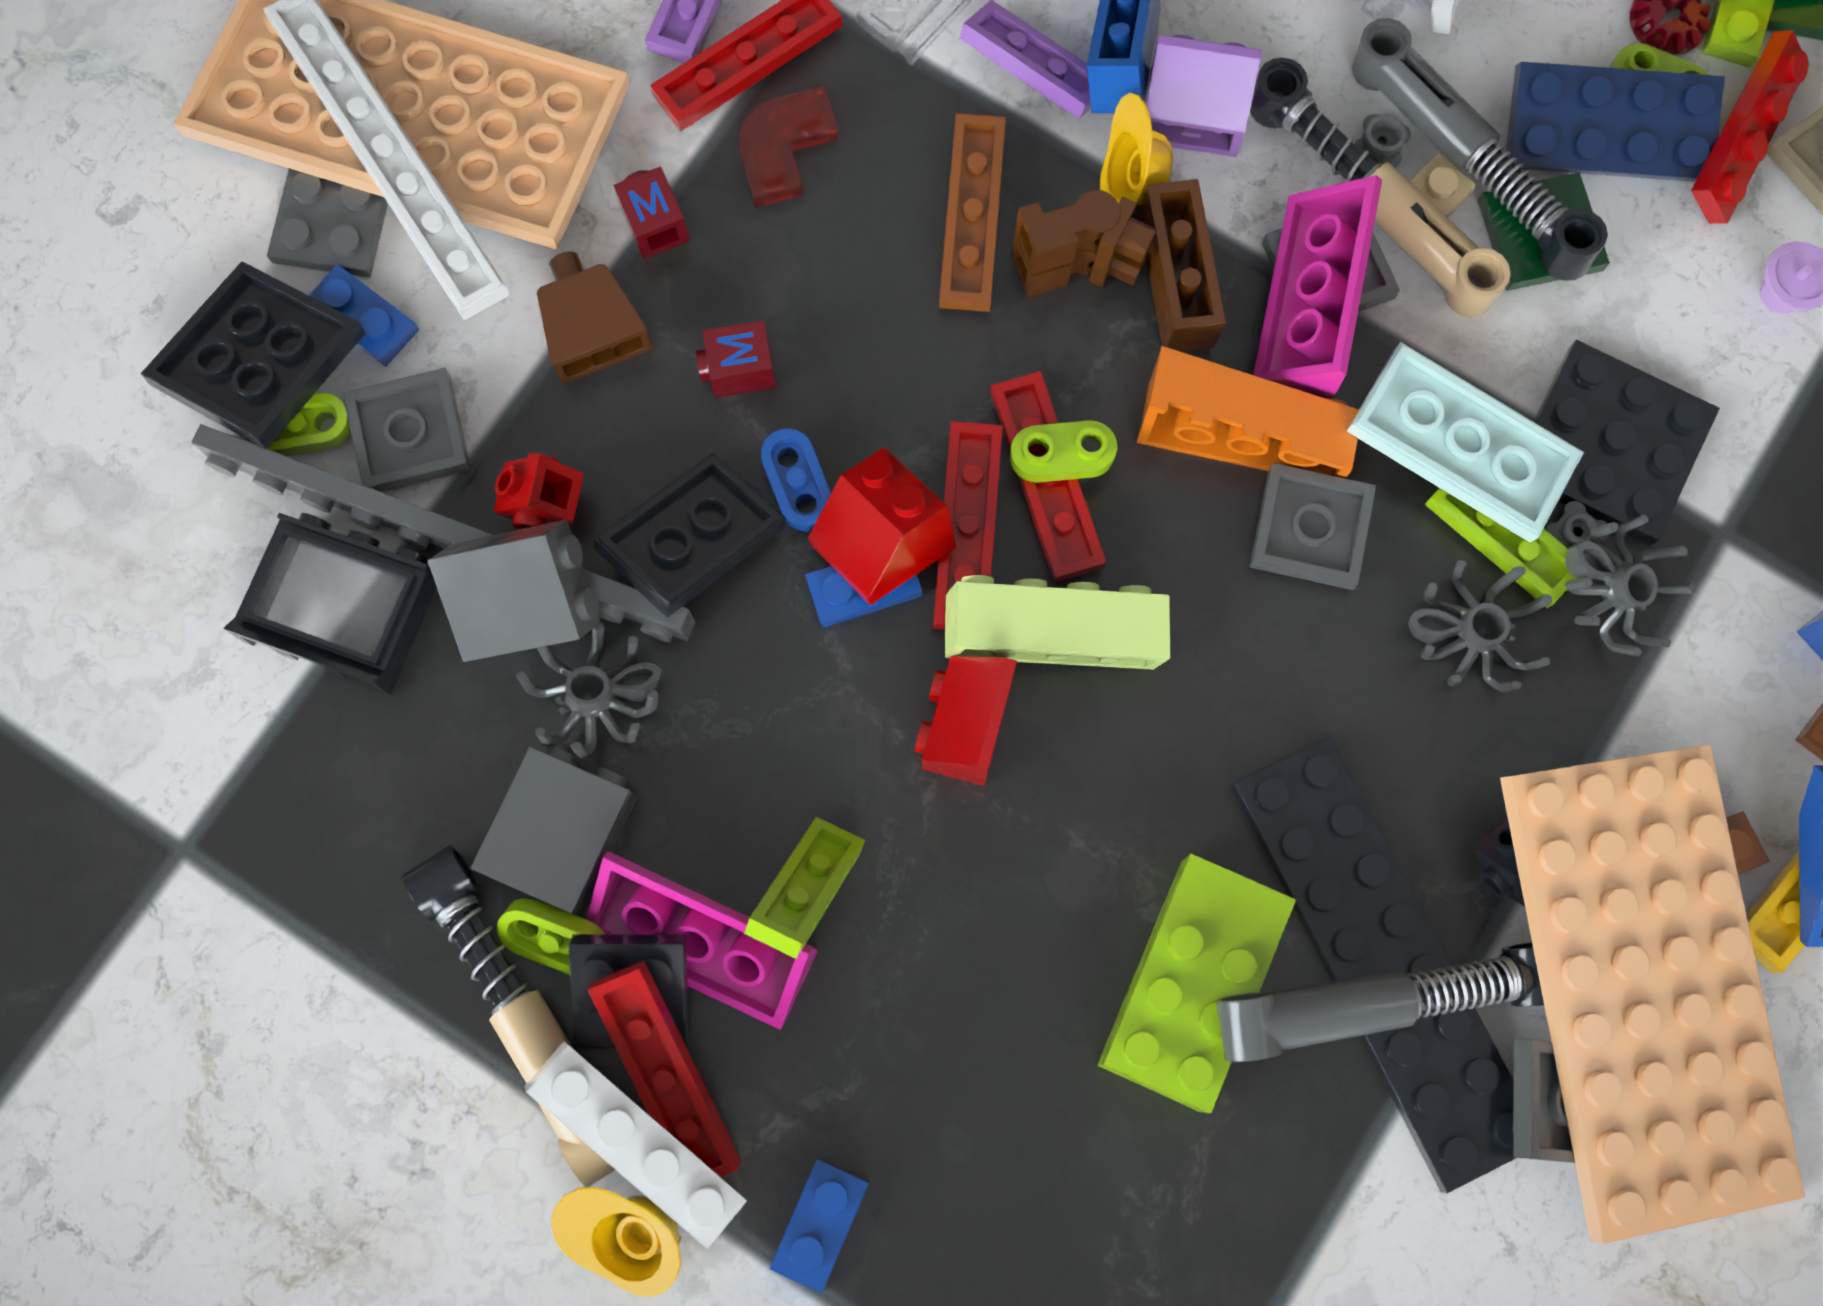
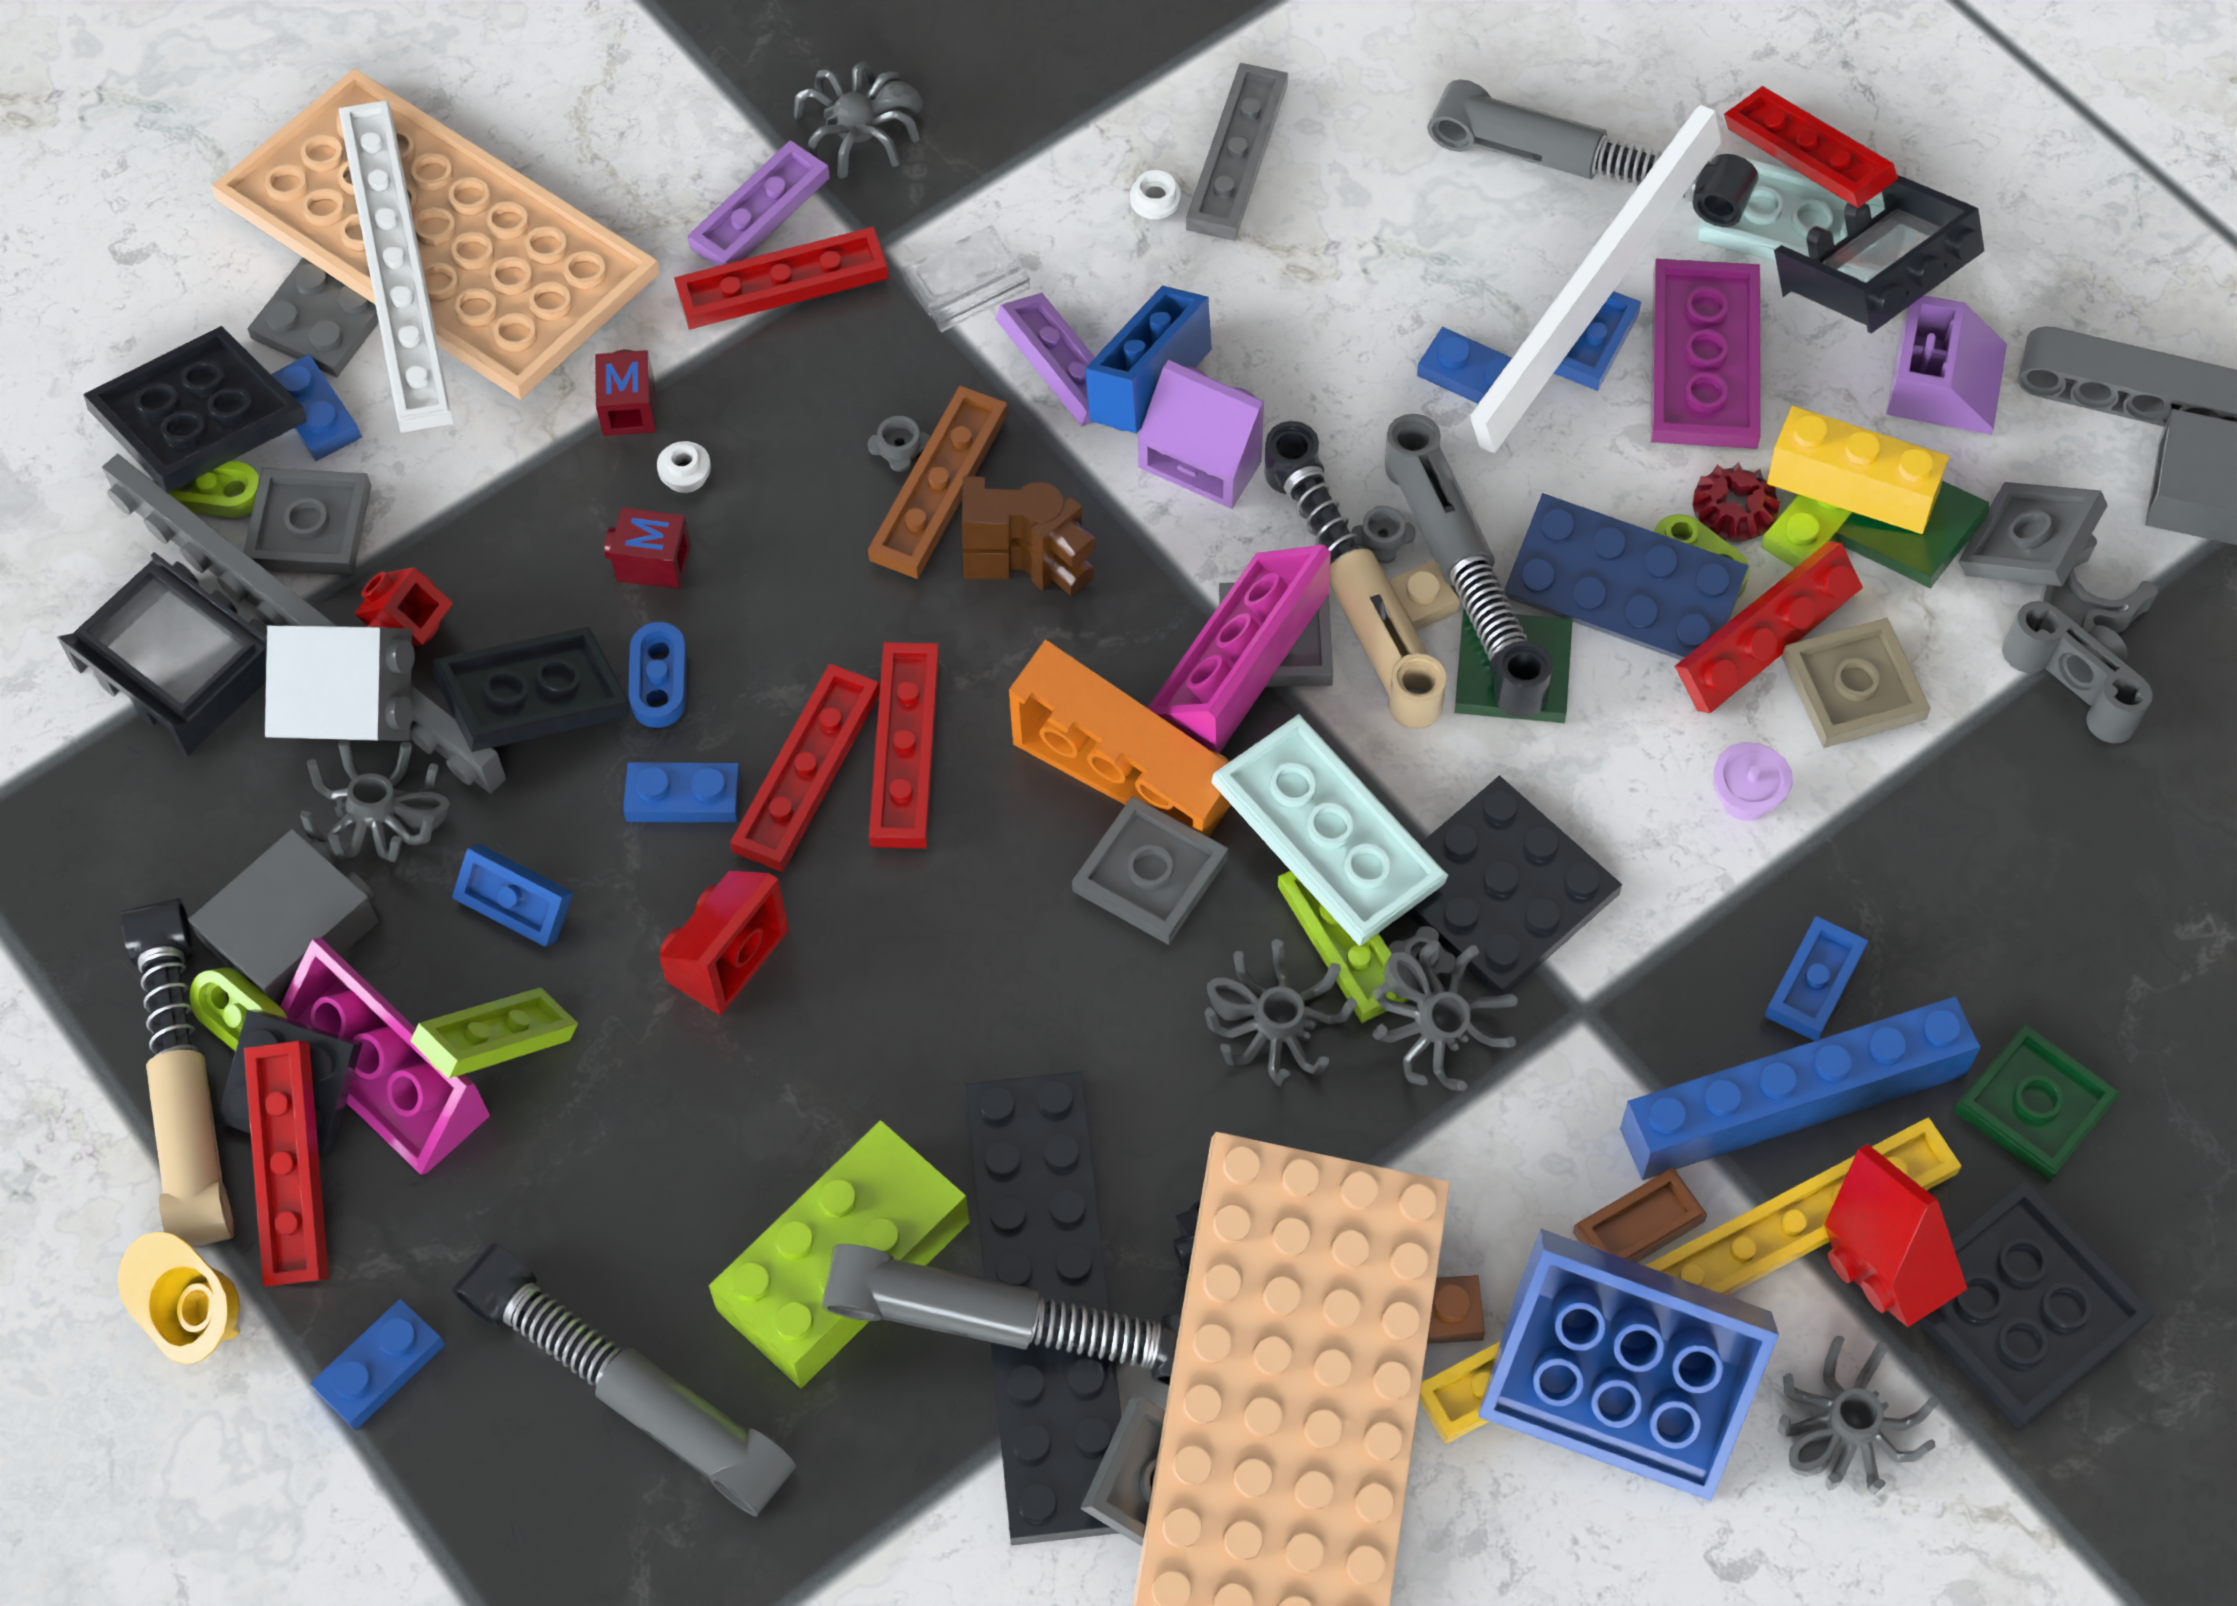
camera: 20 degrees right, 15 degrees down
(587, 319) = (519, 472): reddish brown torso -> none
(635, 1144) = (227, 1202): white brick -> none
(737, 280) = (688, 477): none -> white plate
(755, 738) = (512, 895): none -> blue plate
(775, 132) = (781, 355): clear red plate -> none
(881, 526) = (715, 734): red slope -> none
(924, 171) = (896, 430): none -> dark grey plate
(1057, 624) = (849, 876): yellowish green brick -> none
(1057, 1168) = (736, 1460): none -> piece
(1065, 454) = (921, 723): lime plate -> none
(1134, 152) = (1120, 481): yellow piece -> none
(1182, 266) = (1116, 586): reddish brown brick -> none

